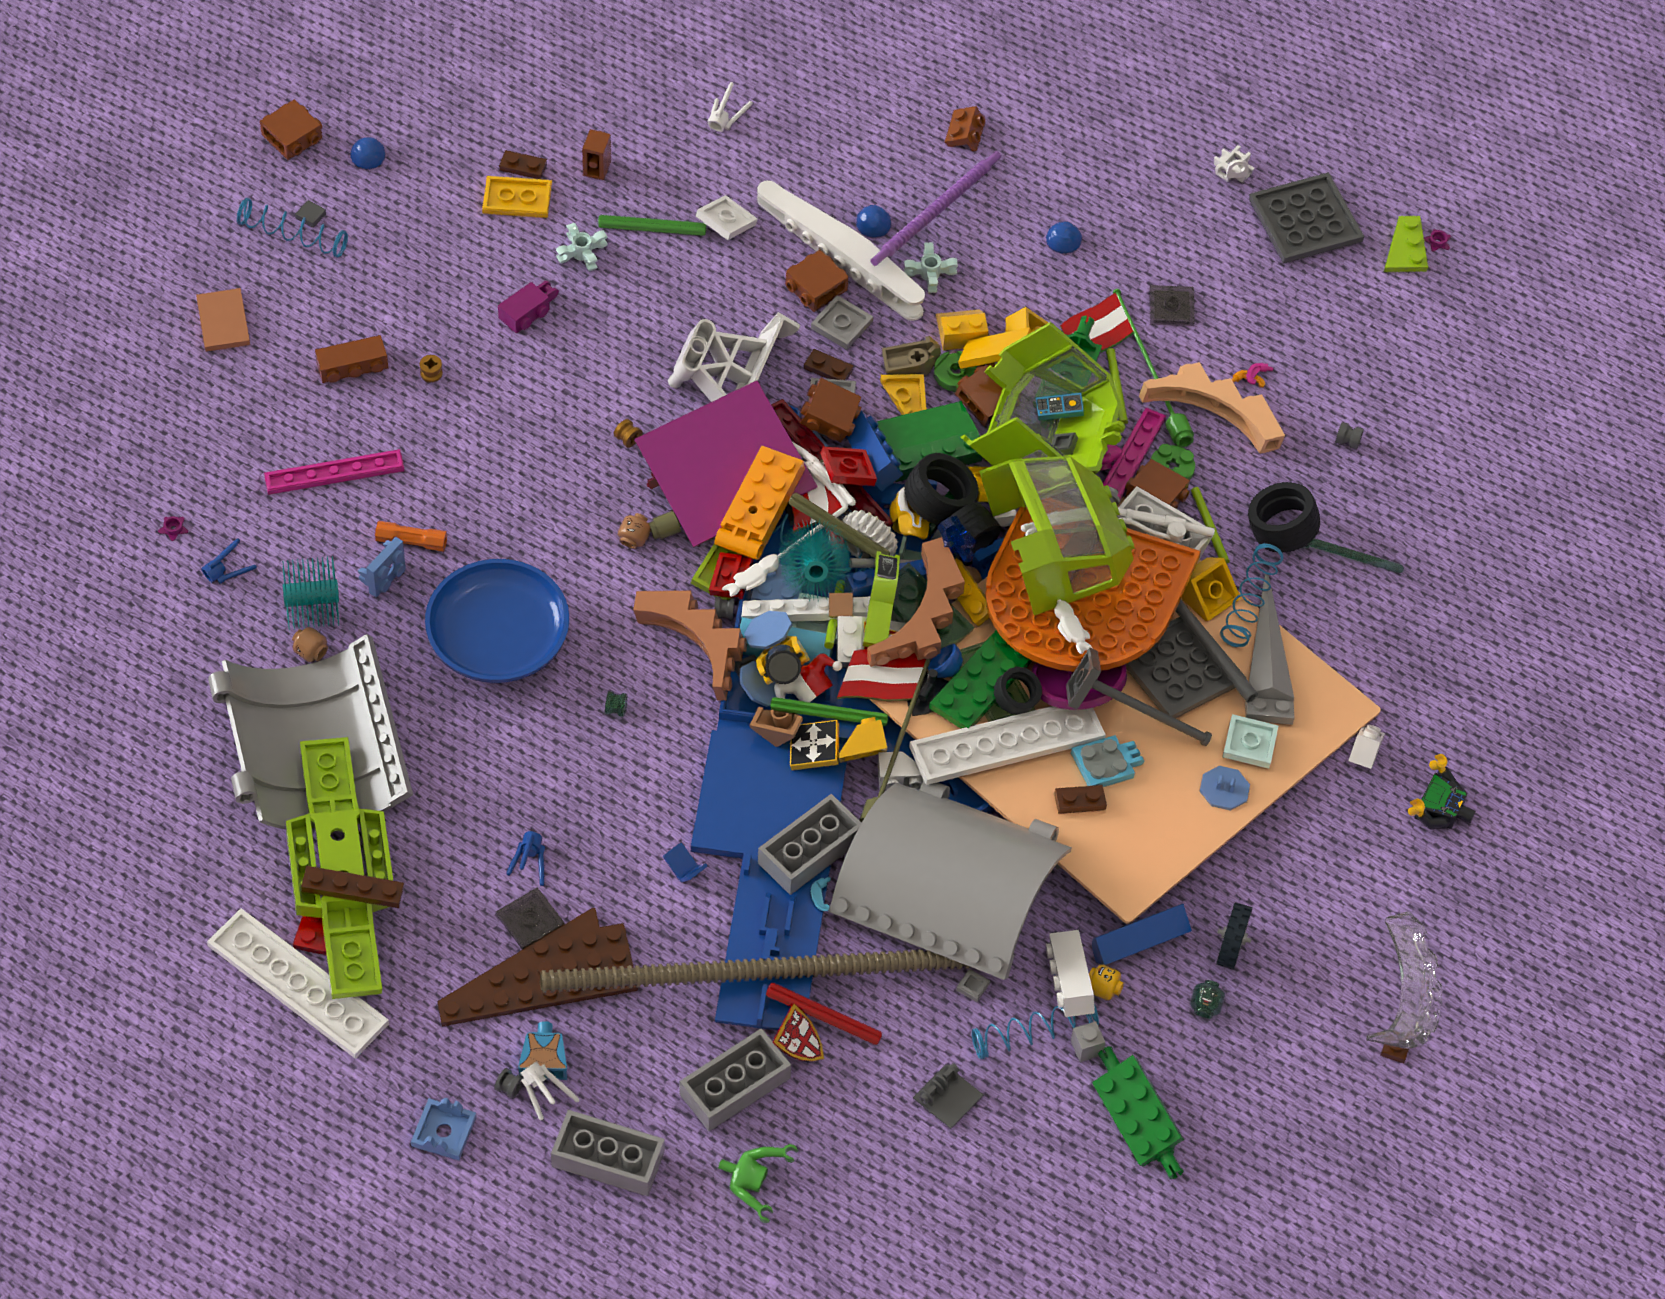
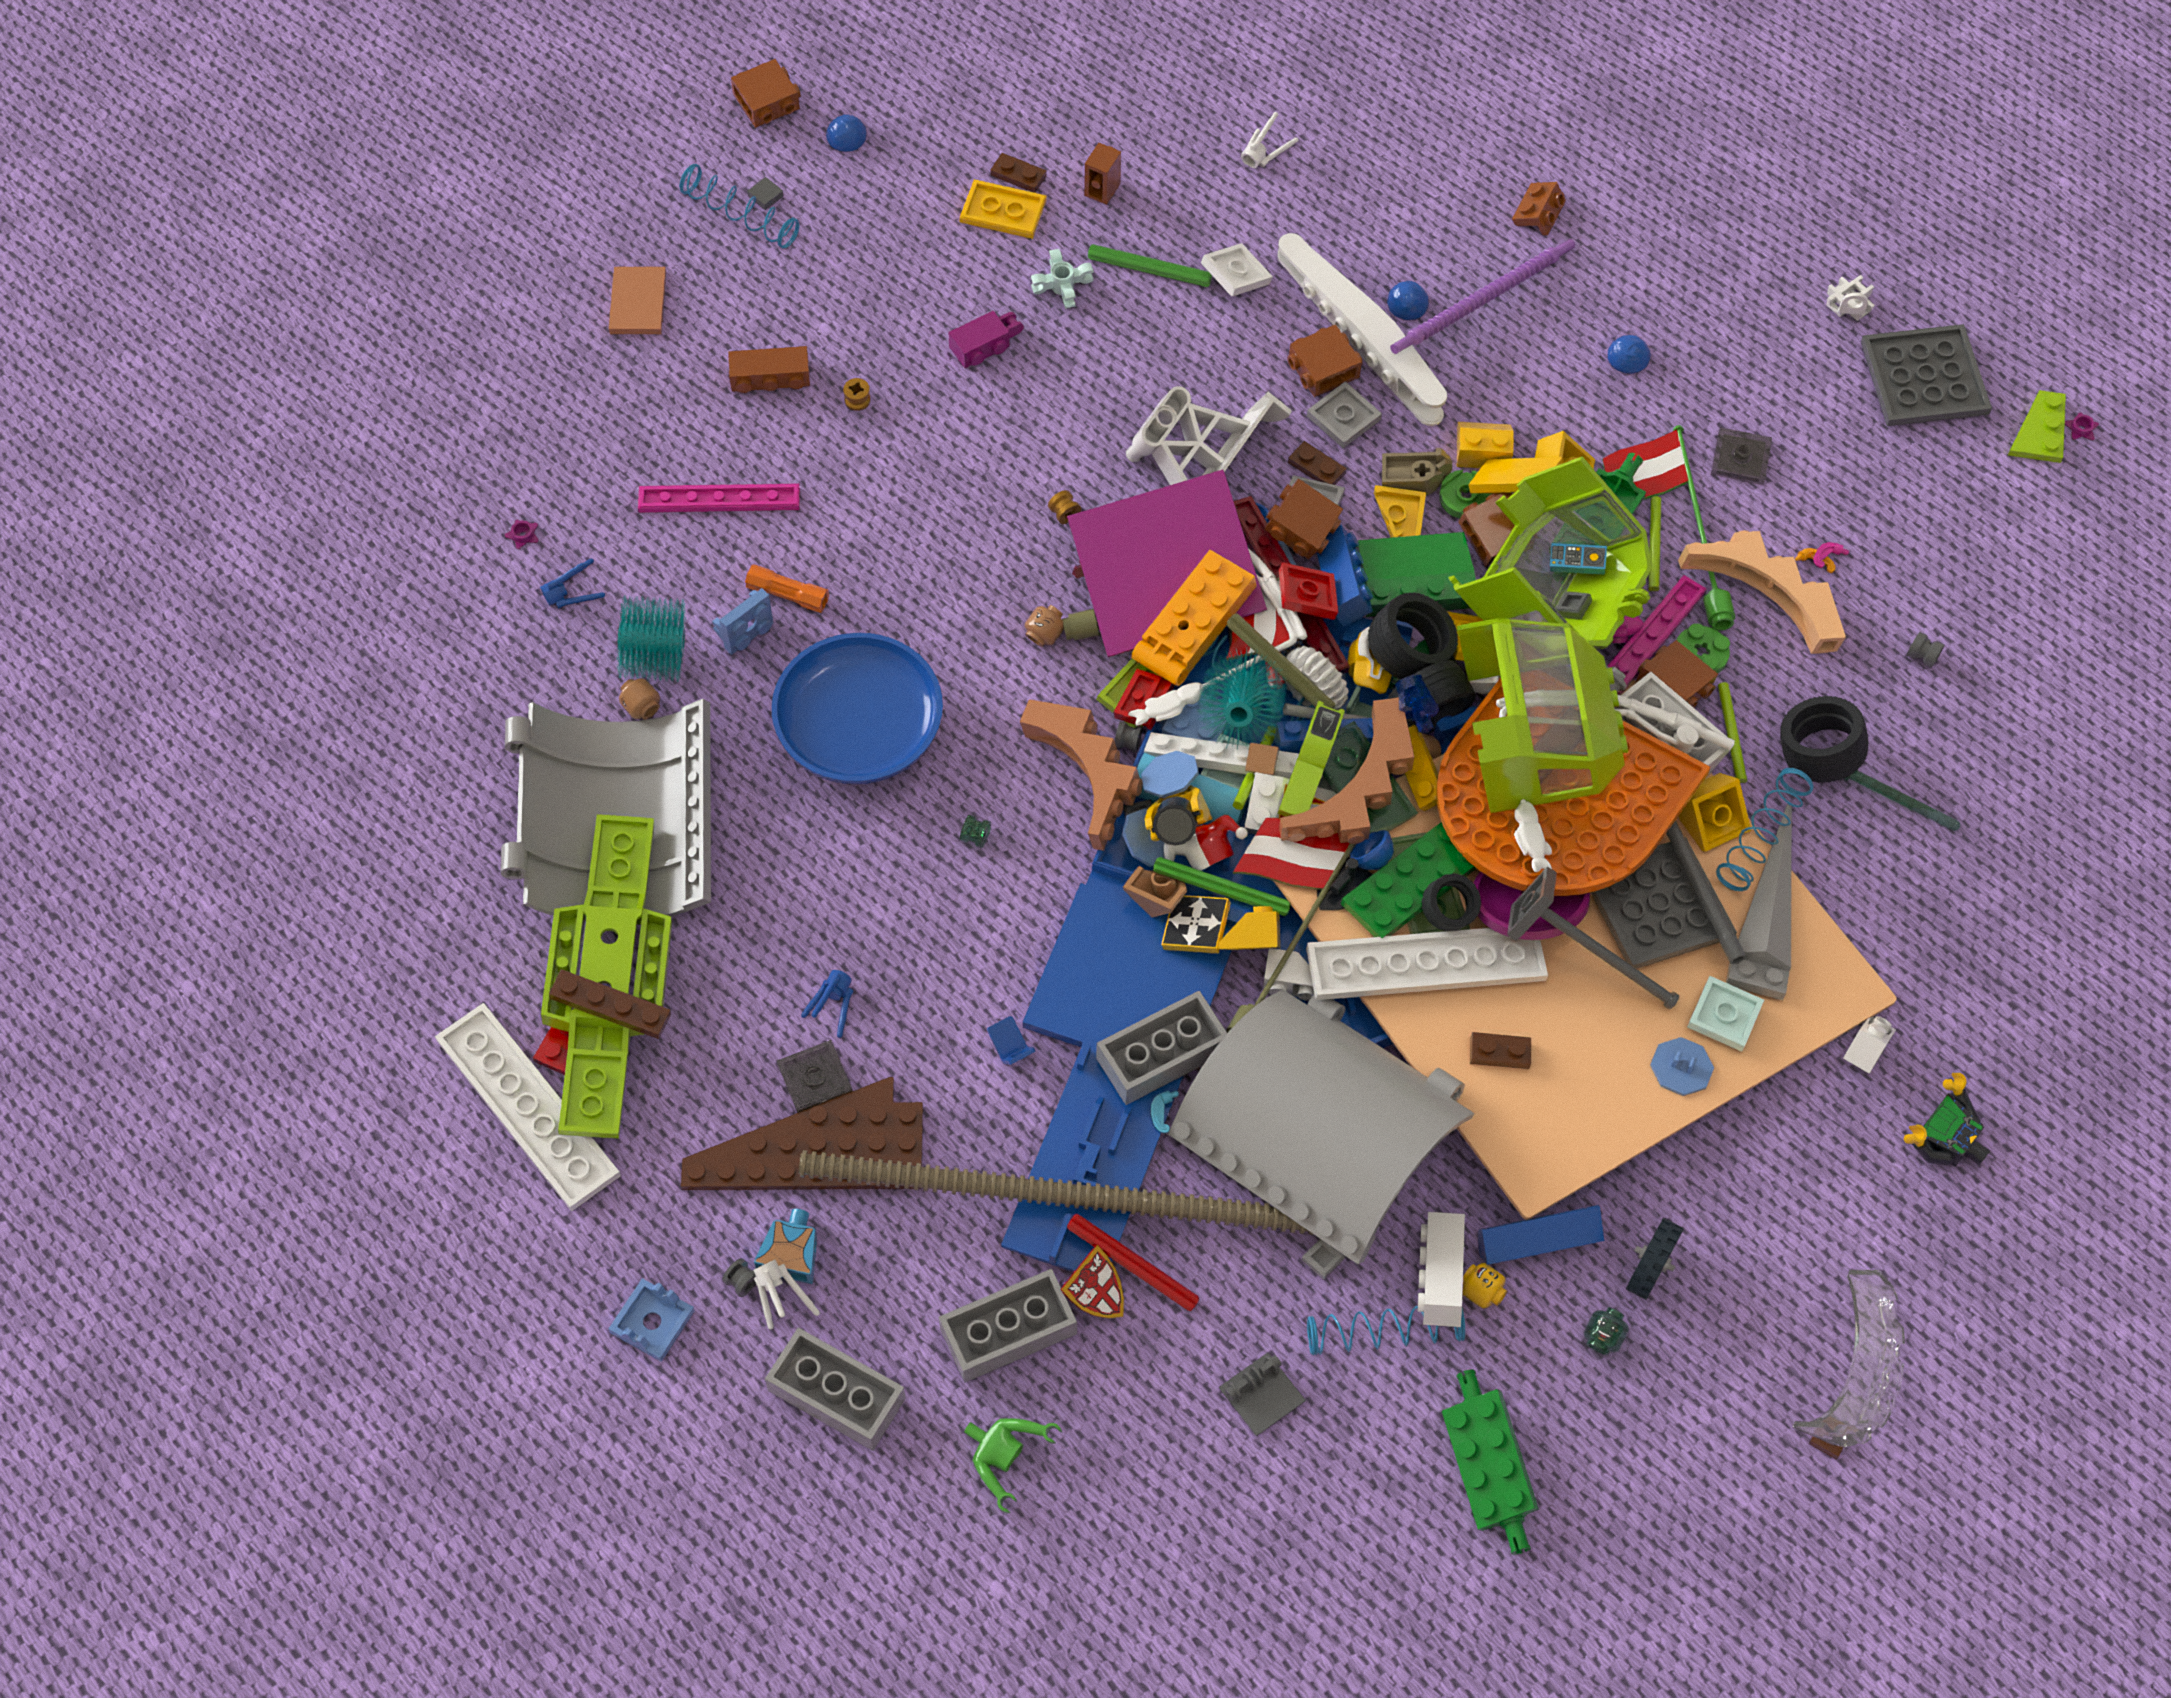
camera: 15 degrees right, 5 degrees up
(931, 267) = (1462, 365): light aqua pin -> none
(1087, 1041) = (1446, 1357): light grey brick -> none
(1107, 761) = (1543, 1008): piece -> none

